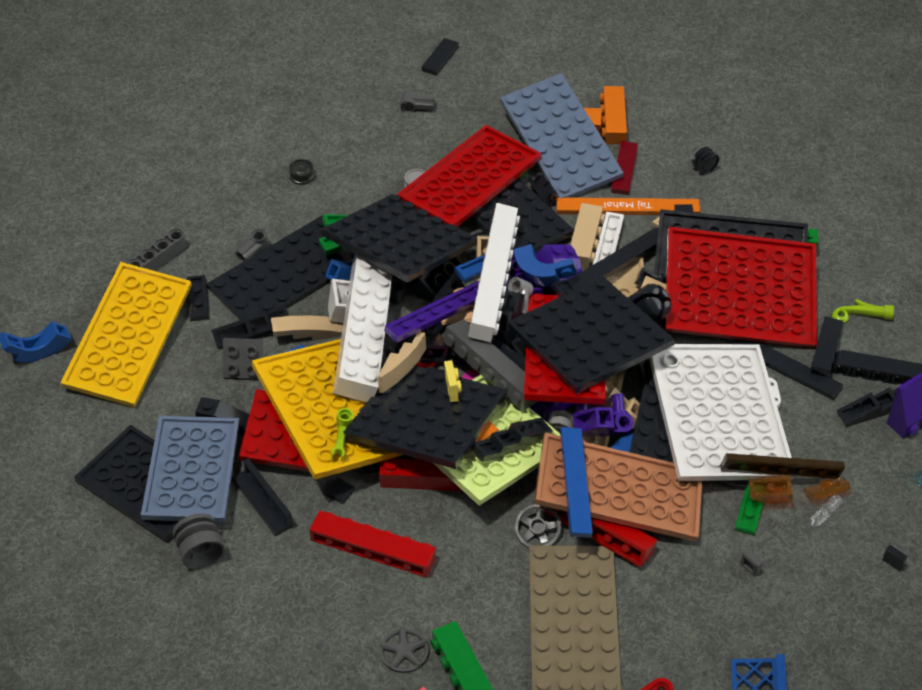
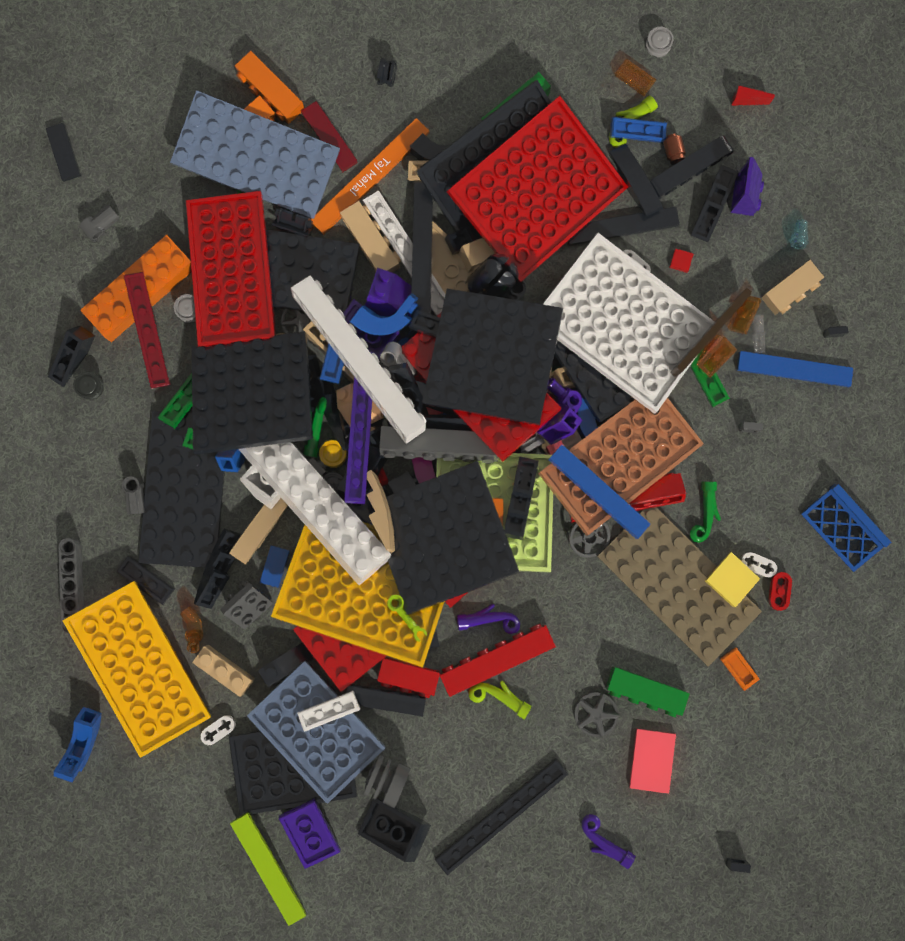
camera: 45 degrees left, 35 degrees up
(47, 527) = (268, 868): none -> lime tile
(103, 531) = (309, 833): none -> dark purple tile
(128, 417) = (215, 726): none -> white beam
(163, 585) = (394, 830): none -> black slope
(179, 384) = (223, 670): none -> tan brick
(192, 346) = (193, 630): none -> clear orange arm
(216, 458) = (328, 711): none -> white tile
(249, 652) = (501, 816): none -> black tile
(296, 497) = (408, 677): none -> red brick
(315, 147) = (71, 354): none -> black slope
(350, 577) = (505, 696): none -> lime plant
(375, 167) = (146, 329): none -> dark red tile
(379, 501) = (485, 616): none -> dark purple plant
(396, 147) = (163, 269): none -> orange brick
(420, 301) = (311, 448): none -> green plant
(451, 376) = (432, 492): light yellow plate -> none
(620, 646) = (732, 579): none -> light yellow tile
(656, 591) = (709, 510): none -> green plant
(659, 660) = (760, 560): none -> white beam
(811, 420) = (681, 260): none -> red tile
(834, 559) = (795, 369): none -> blue tile
(862, 318) = (638, 129): none -> blue tile
(881, 346) = (674, 148): none -> copper brick
(887, 502) = (793, 288): none -> tan brick
(894, 290) = (635, 77): none -> clear orange plate

